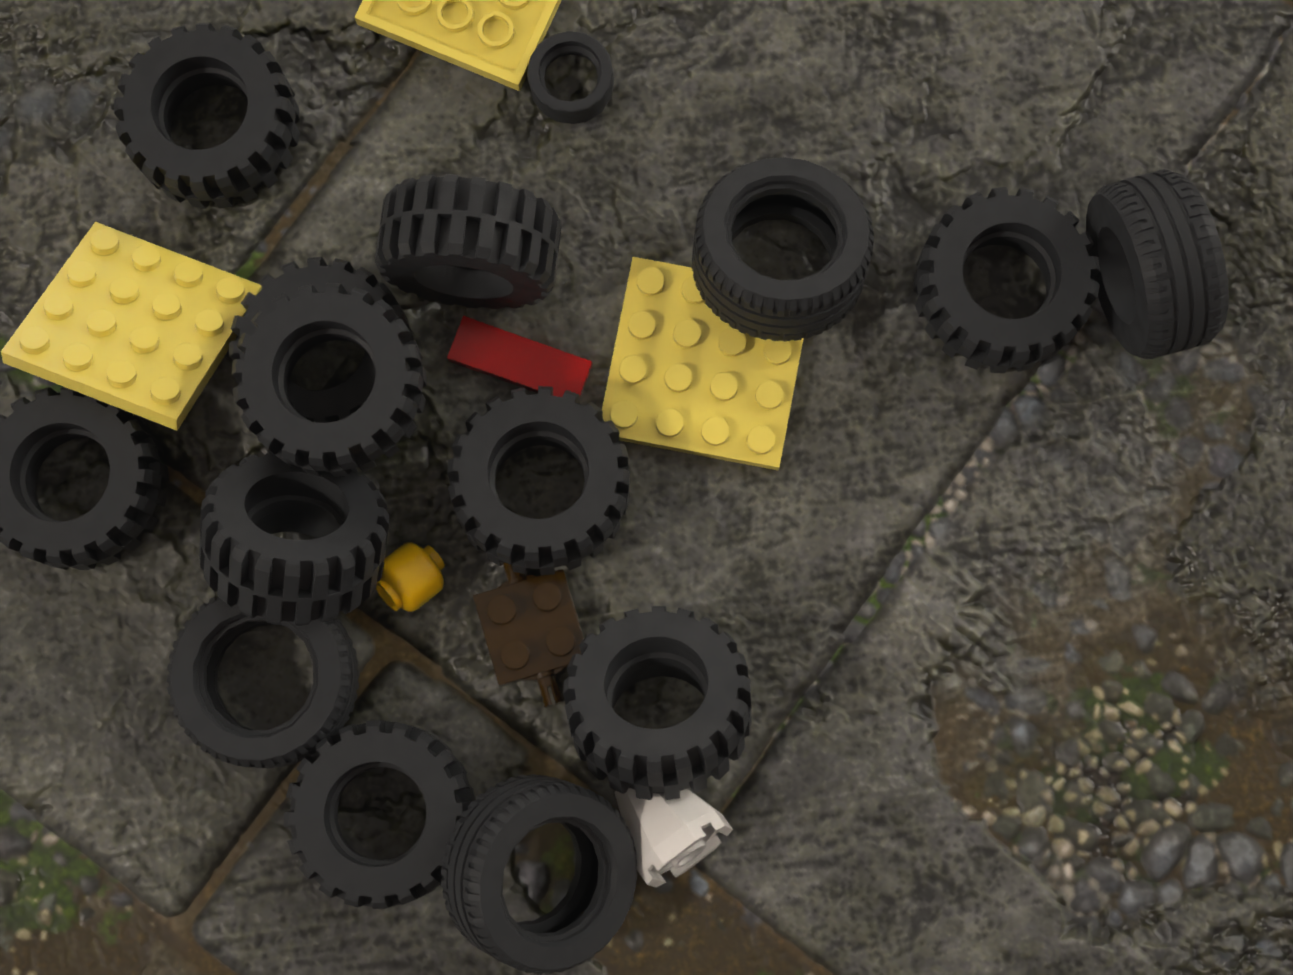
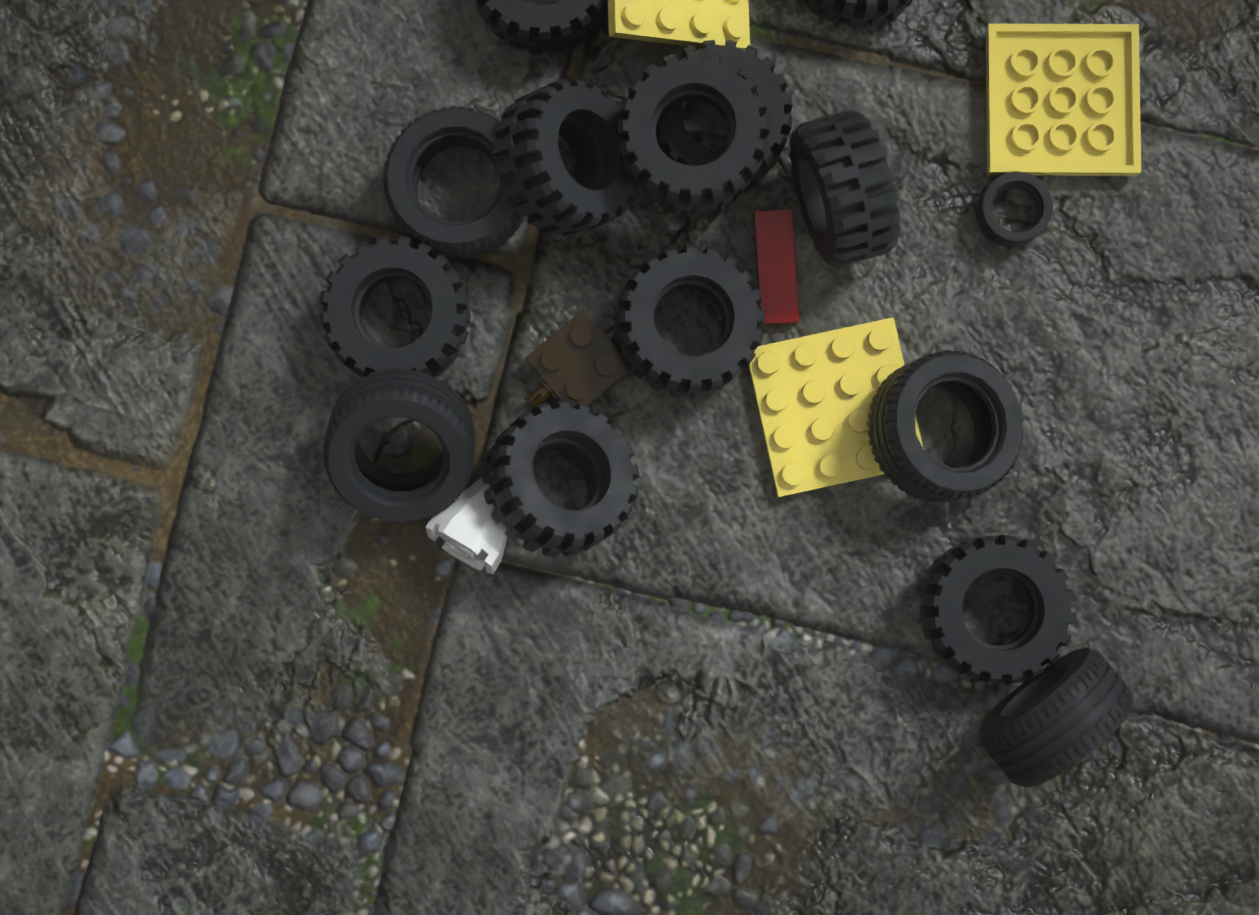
camera: 60 degrees right, 5 degrees up
(410, 577) = (577, 257): yellow head -> none

